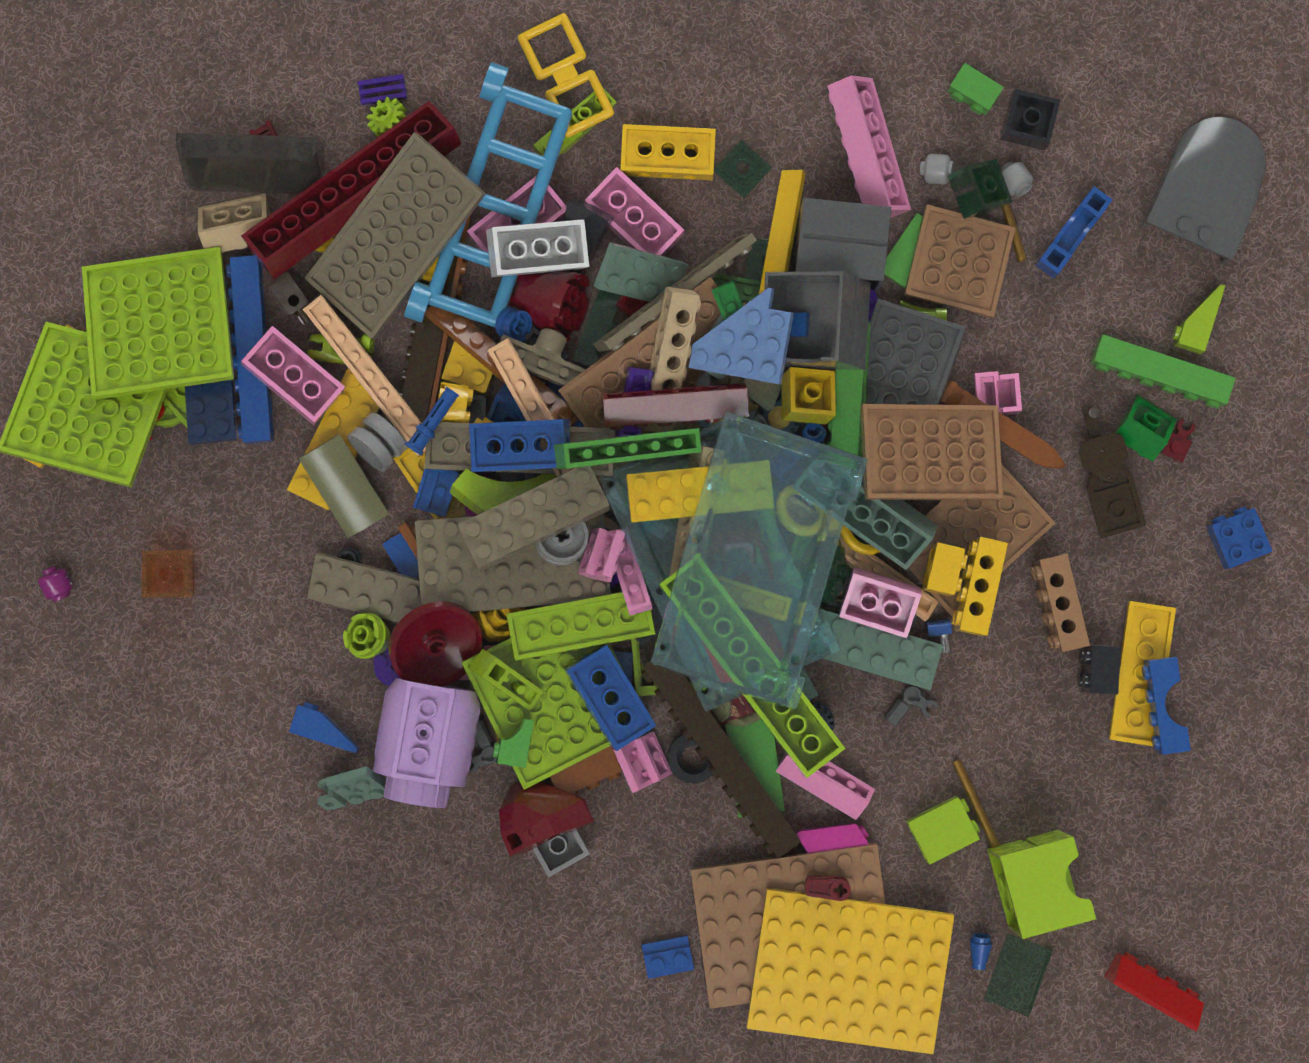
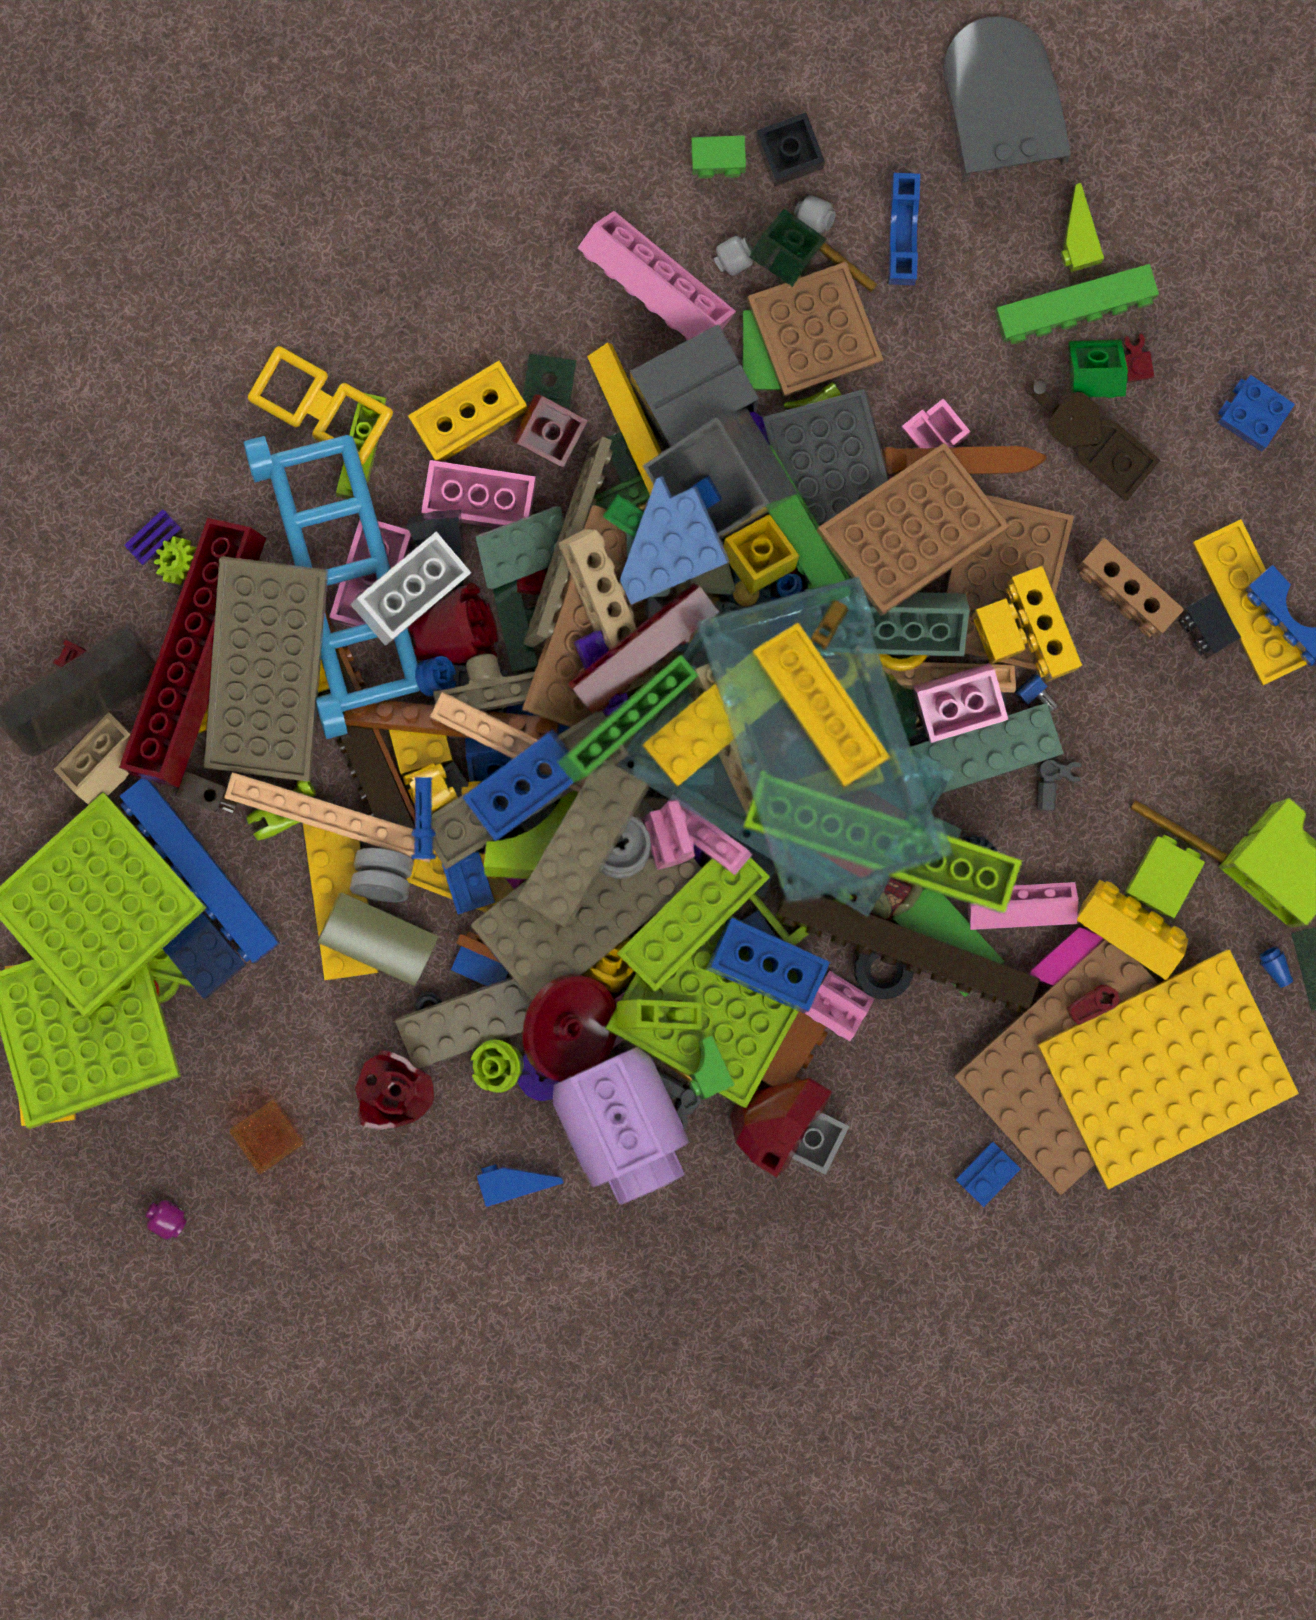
camera: 35 degrees left, 0 degrees up
(265, 609) = (378, 1103): none -> dark red piece
(293, 375) = (259, 866): bright pink brick -> none
(352, 786) = (581, 1217): sand green plate -> none
(717, 204) = (549, 430): none -> brick
(775, 534) = (820, 705): none -> yellow plate
(824, 478) = (830, 622): none -> pearl gold bar
(894, 852) = (1133, 928): none -> yellow brick

